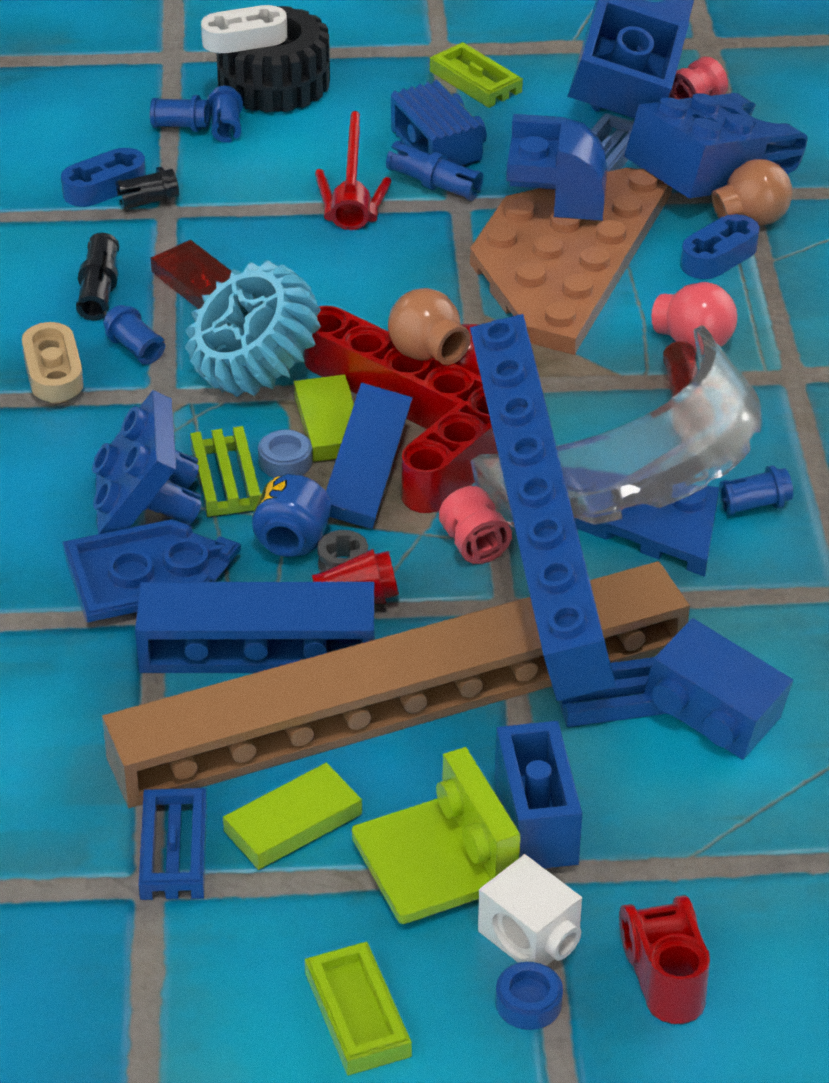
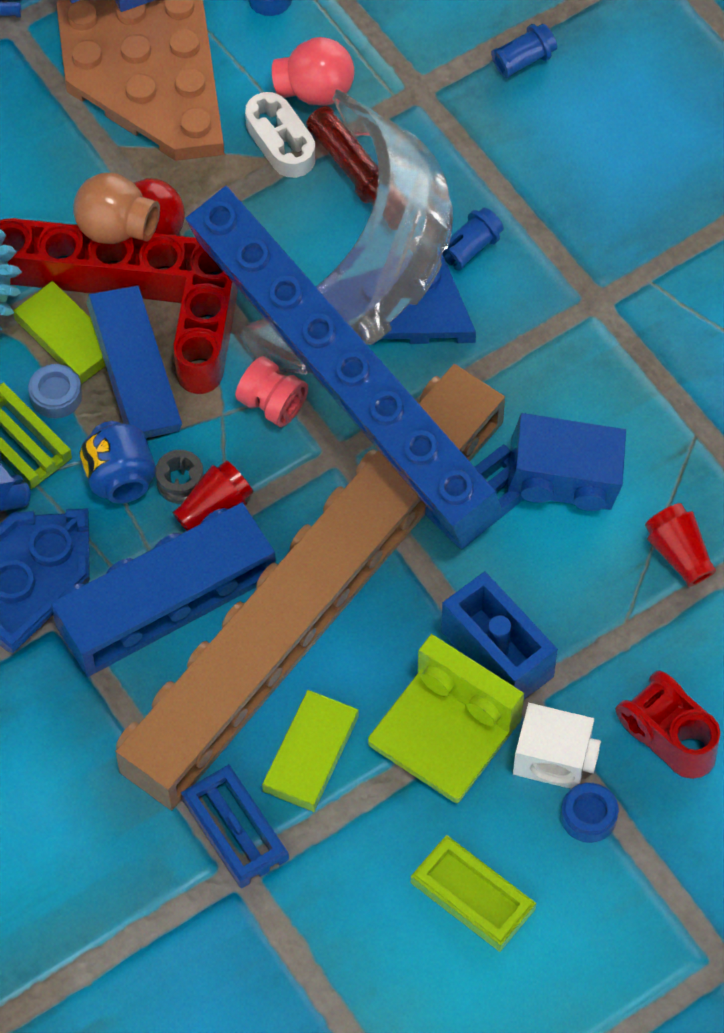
camera: 30 degrees left, 20 degrees up
(626, 354) = (288, 129): none -> white beam
(790, 804) = (680, 542): none -> red cone

